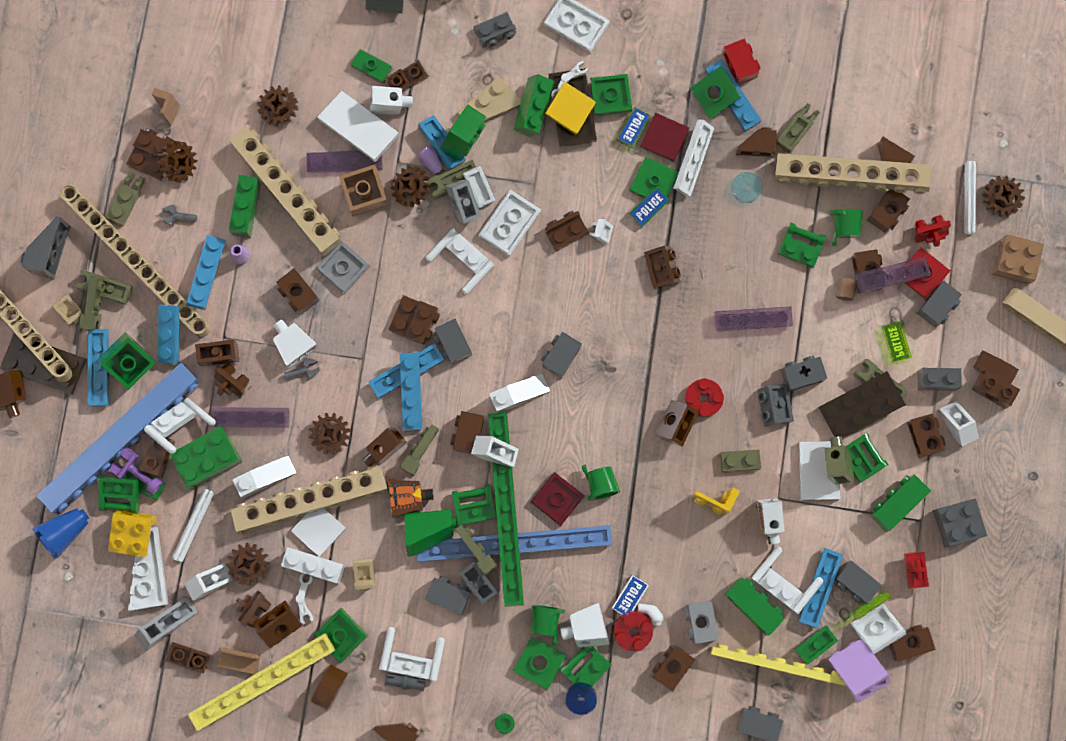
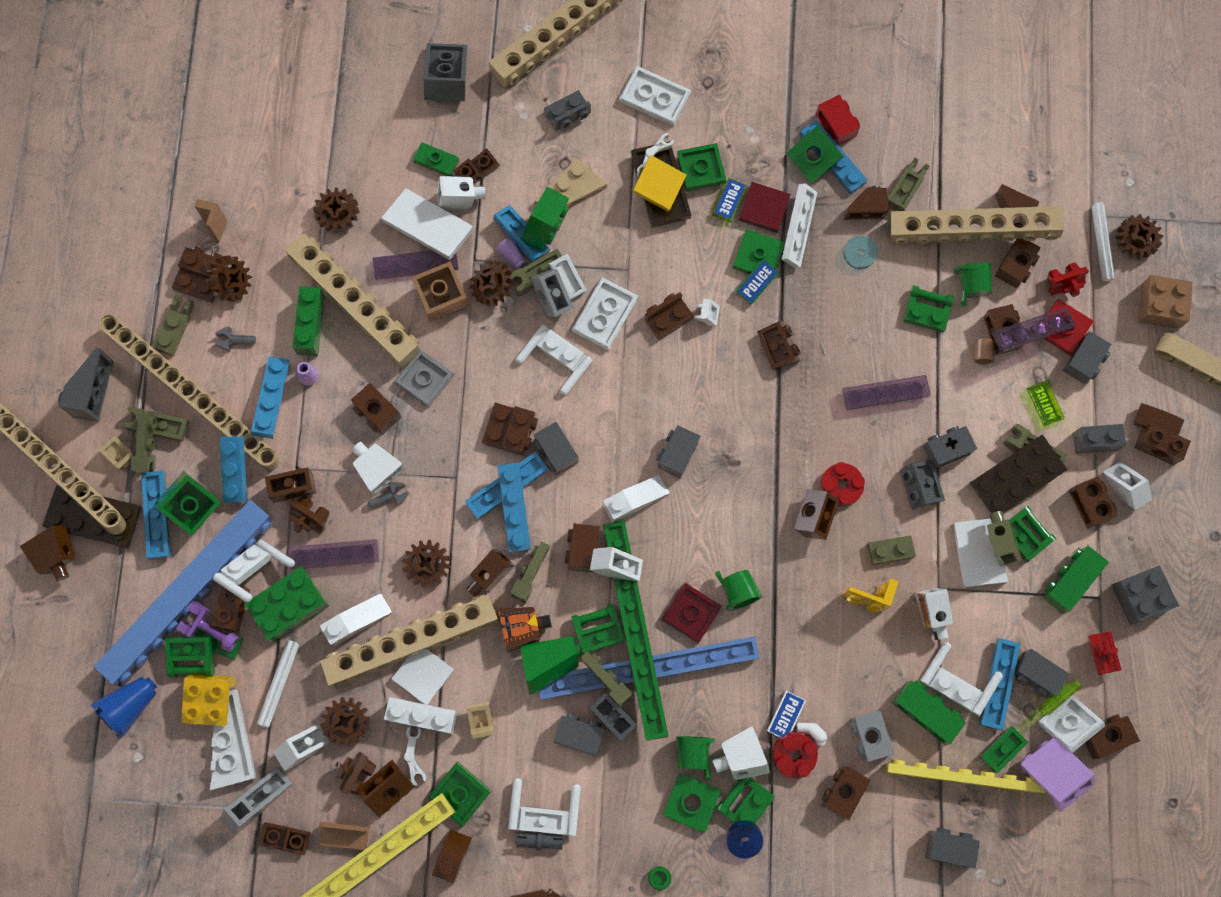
camera: 10 degrees left, 5 degrees down
(533, 105) = (618, 184): green brick -> none

